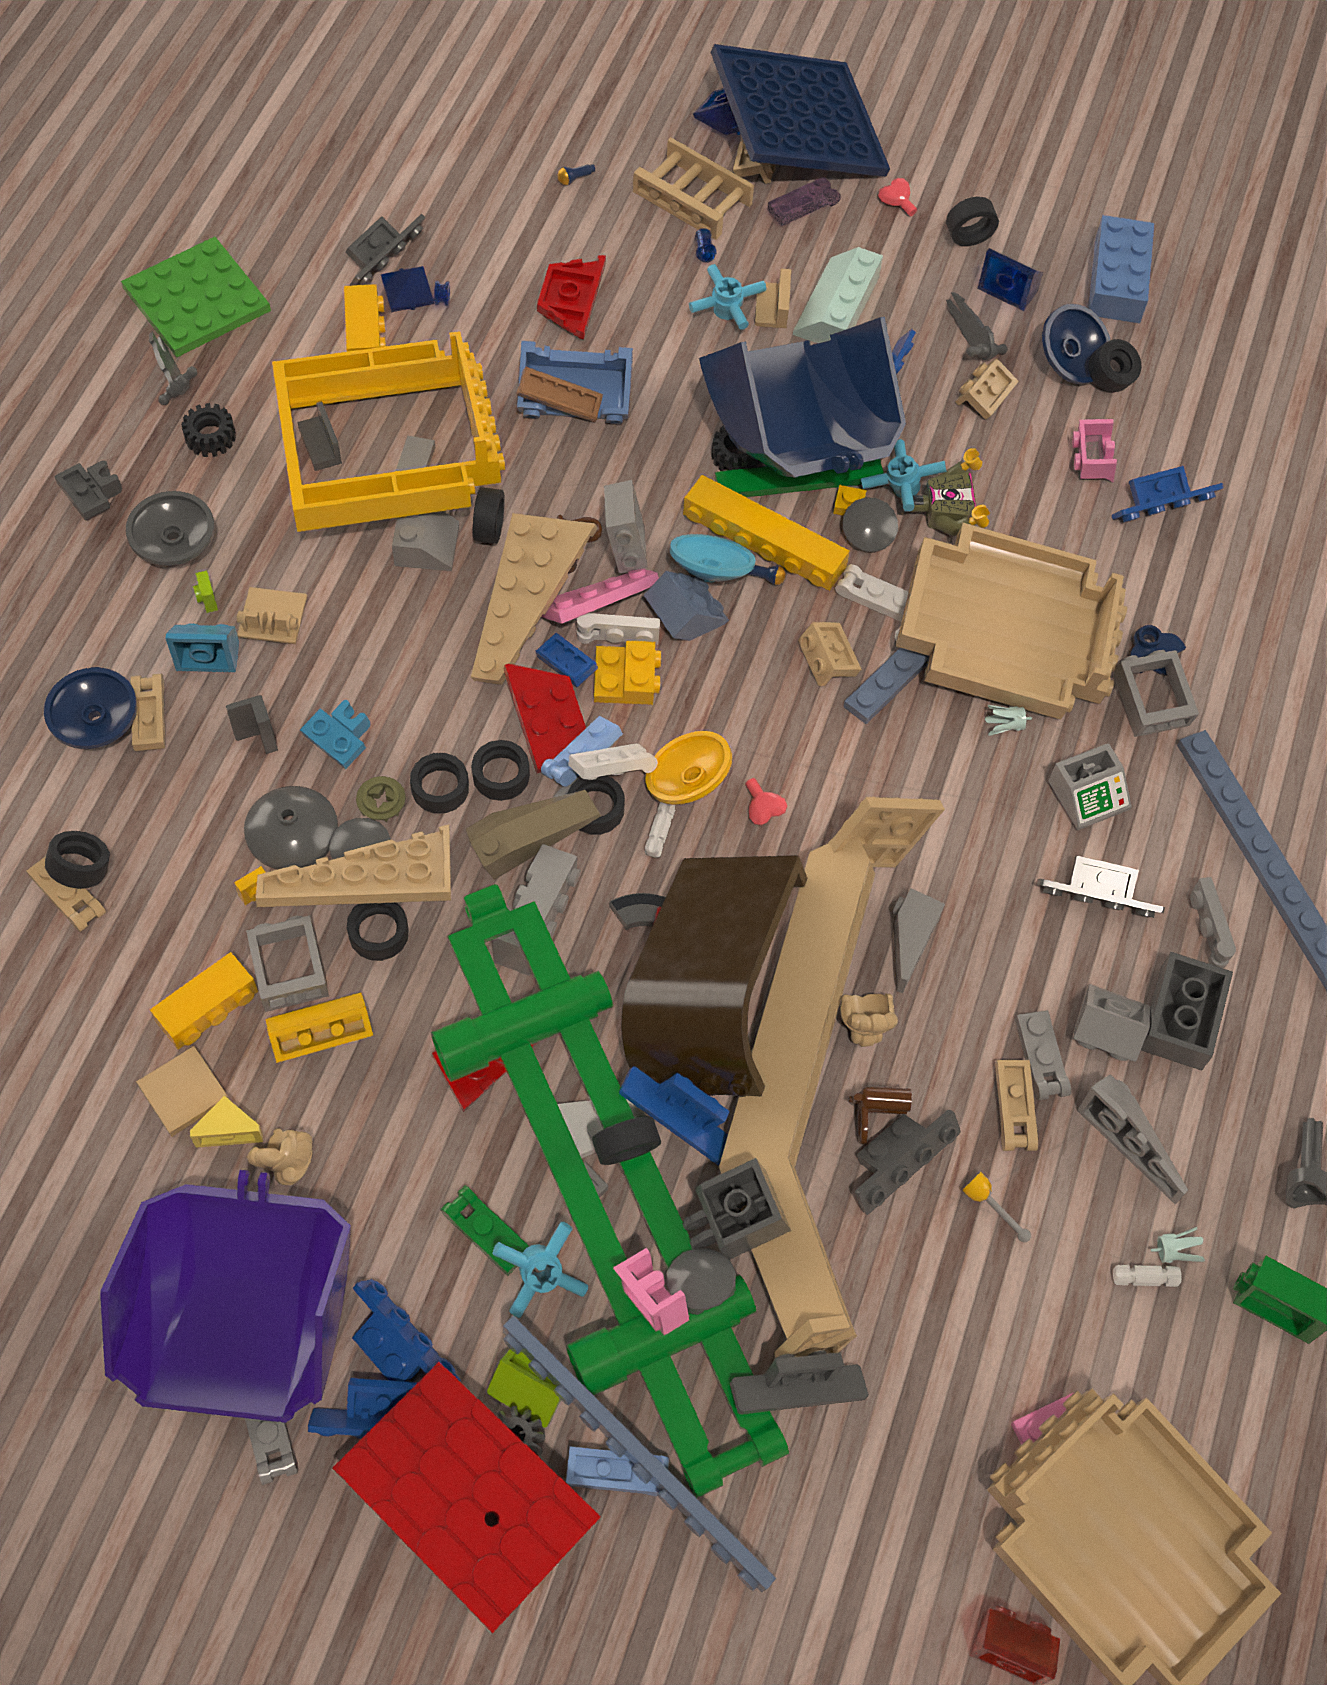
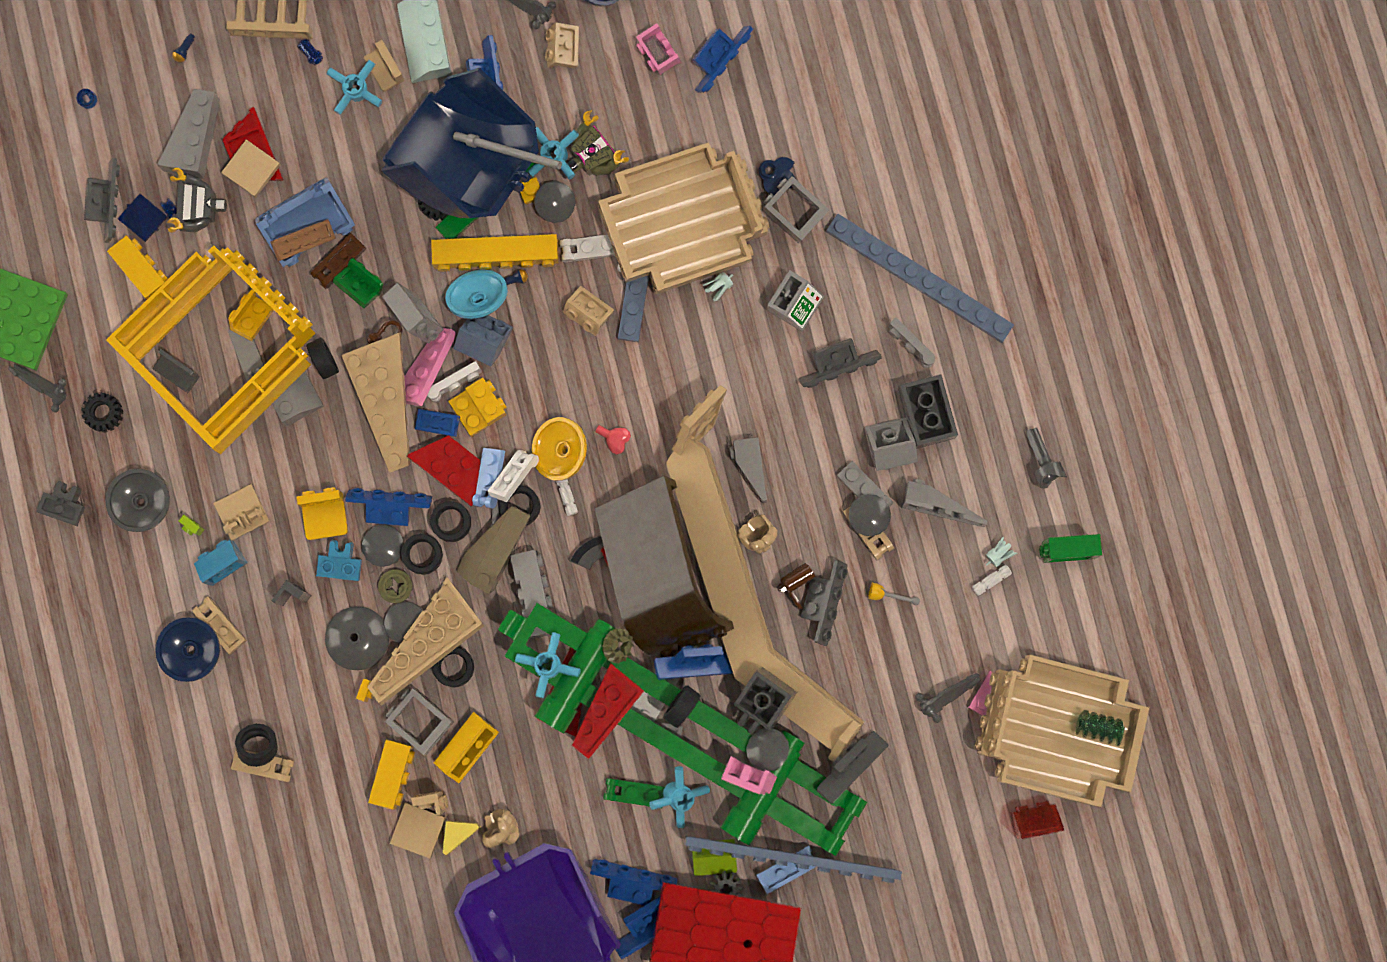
camera: 25 degrees left, 20 degrees up
(226, 1058) = (431, 799): none -> tan bracket
(362, 668) = (323, 513): none -> yellow bracket
(400, 747) = (382, 545): none -> dark grey dish
(440, 153) = (93, 98): none -> clear blue bush
(440, 712) = (388, 507): none -> blue bracket
(443, 432) = (249, 316): none -> yellow bracket
(472, 302) = (195, 204): none -> dark grey torso
(501, 979) = (544, 657): none -> medium azure bar
(519, 245) = (192, 136): none -> light grey wedge
(535, 1081) = (608, 707): none -> red wing
(557, 303) = (251, 168): none -> tan tile
(581, 441) = (338, 260): none -> reddish brown plate
(587, 473) = (359, 283): none -> green bracket
(592, 1002) = (611, 643): none -> olive gear
(823, 412) = (474, 141): none -> light grey bar
(991, 1385) = (933, 706): none -> dark grey piece
(1030, 1084) = (869, 515): none -> dark grey dish
(1193, 1571) = (1100, 726): none -> clear green piece

